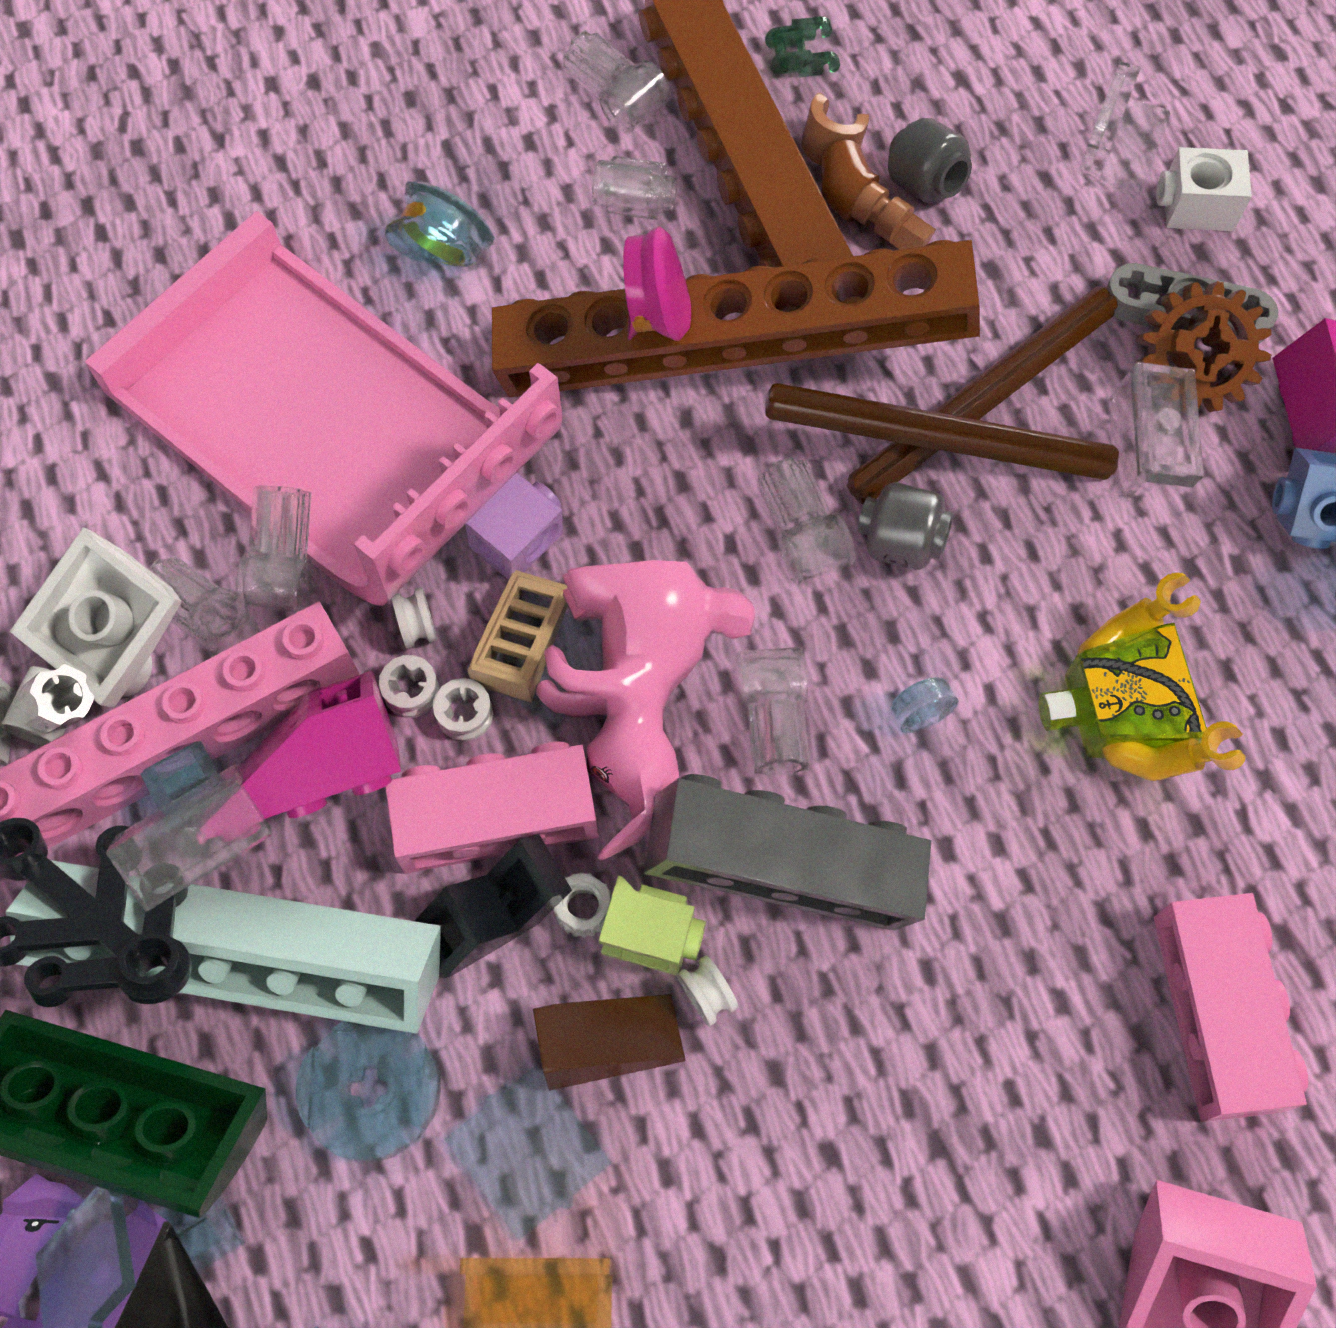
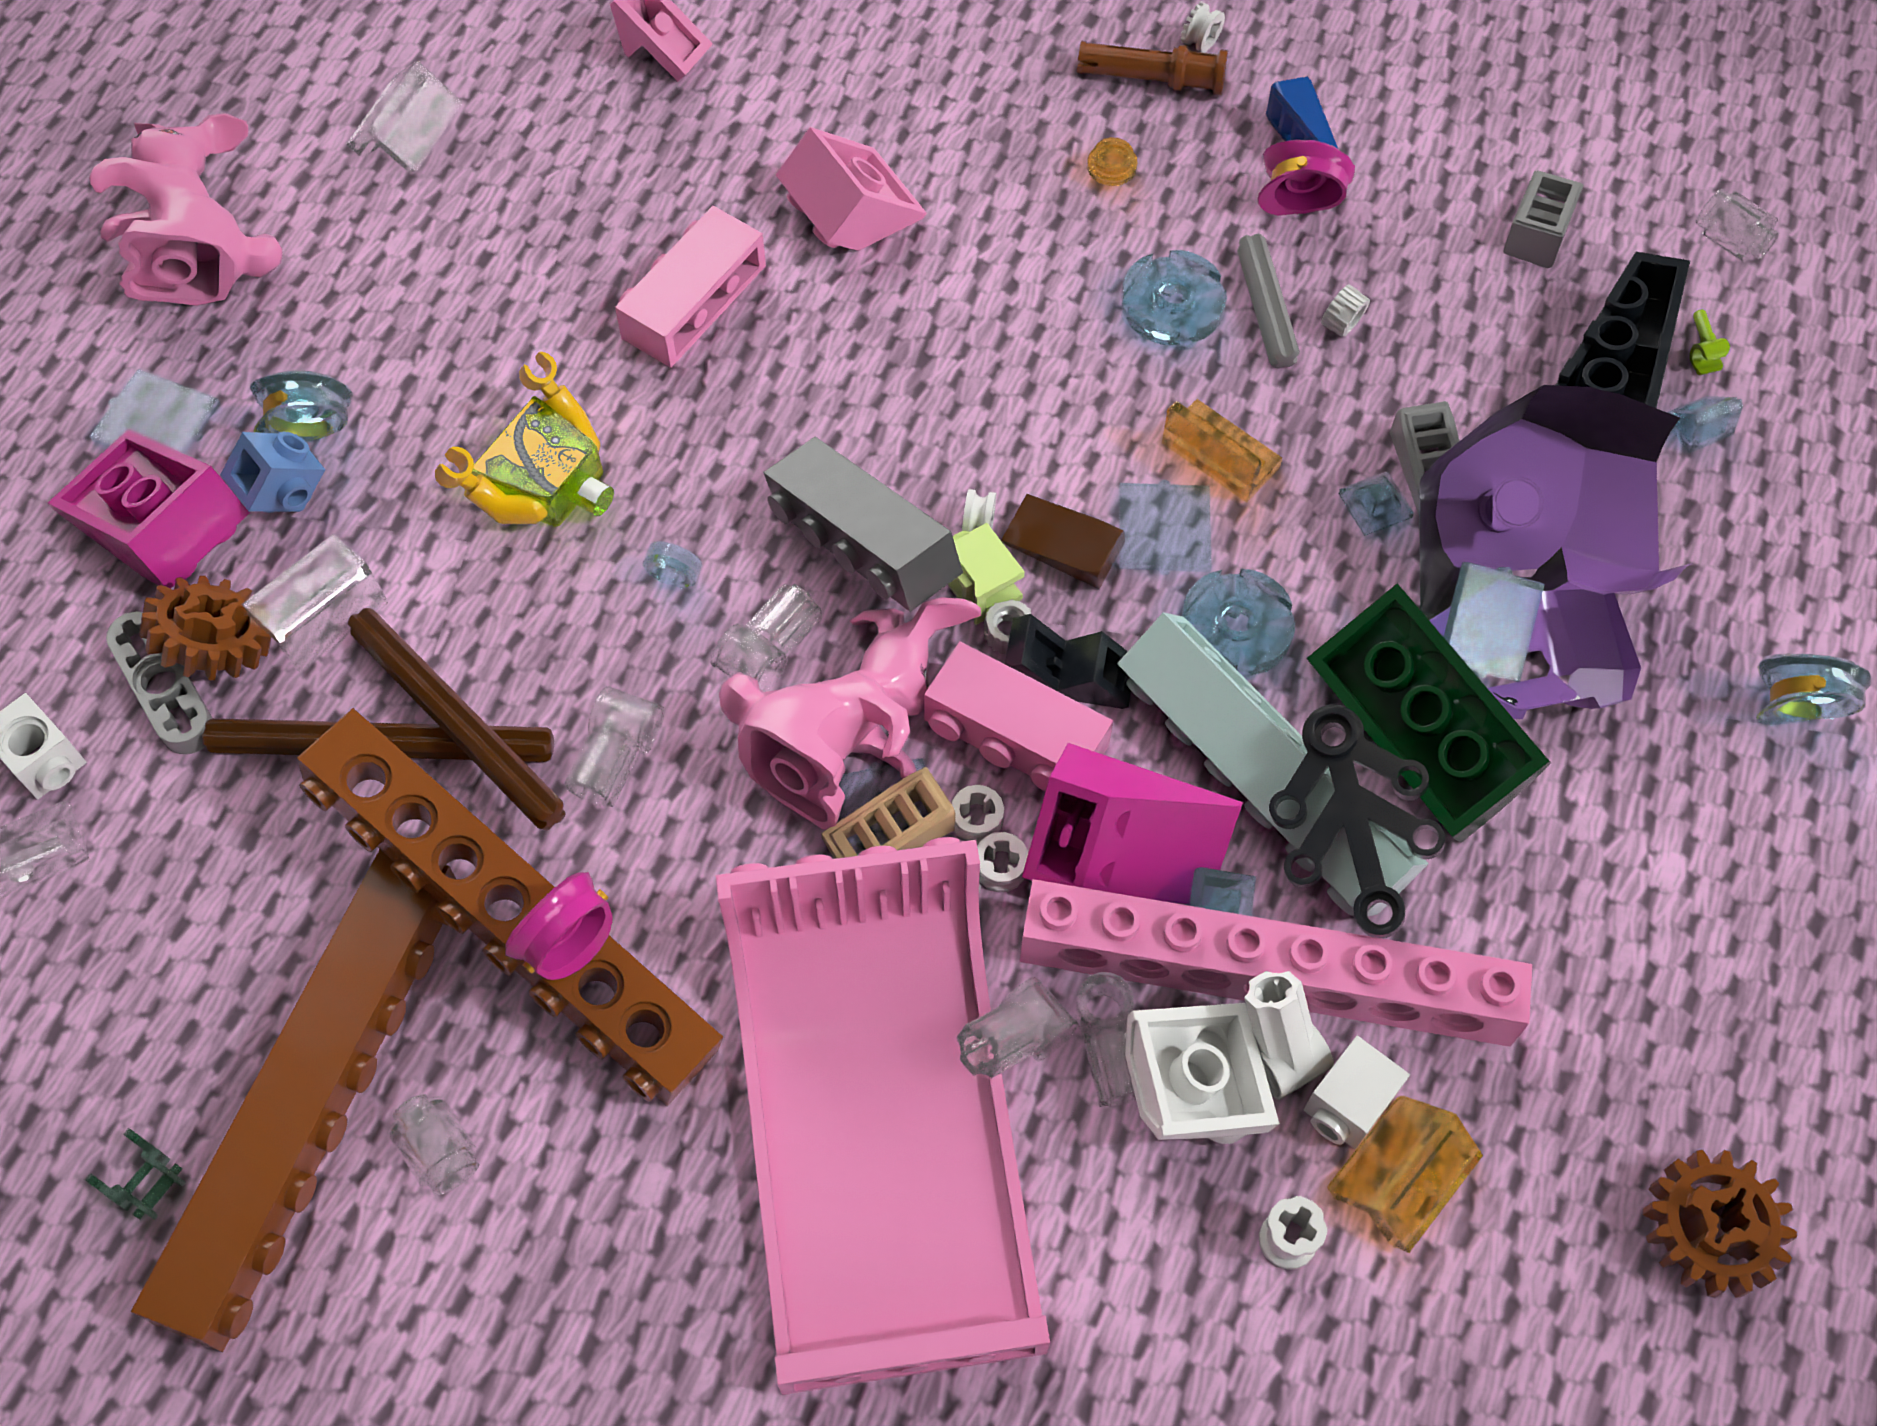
camera: 140 degrees left, 5 degrees down
(188, 838) = (1248, 808): clear panel -> none
(438, 228) = (632, 1231): clear light blue piece -> none
(625, 90) = (329, 1262): clear piece -> none
(850, 184) = (264, 997): nougat piece -> none
(905, 526) = (552, 678): flat silver head -> none
(929, 160) = (186, 952): dark grey head -> none

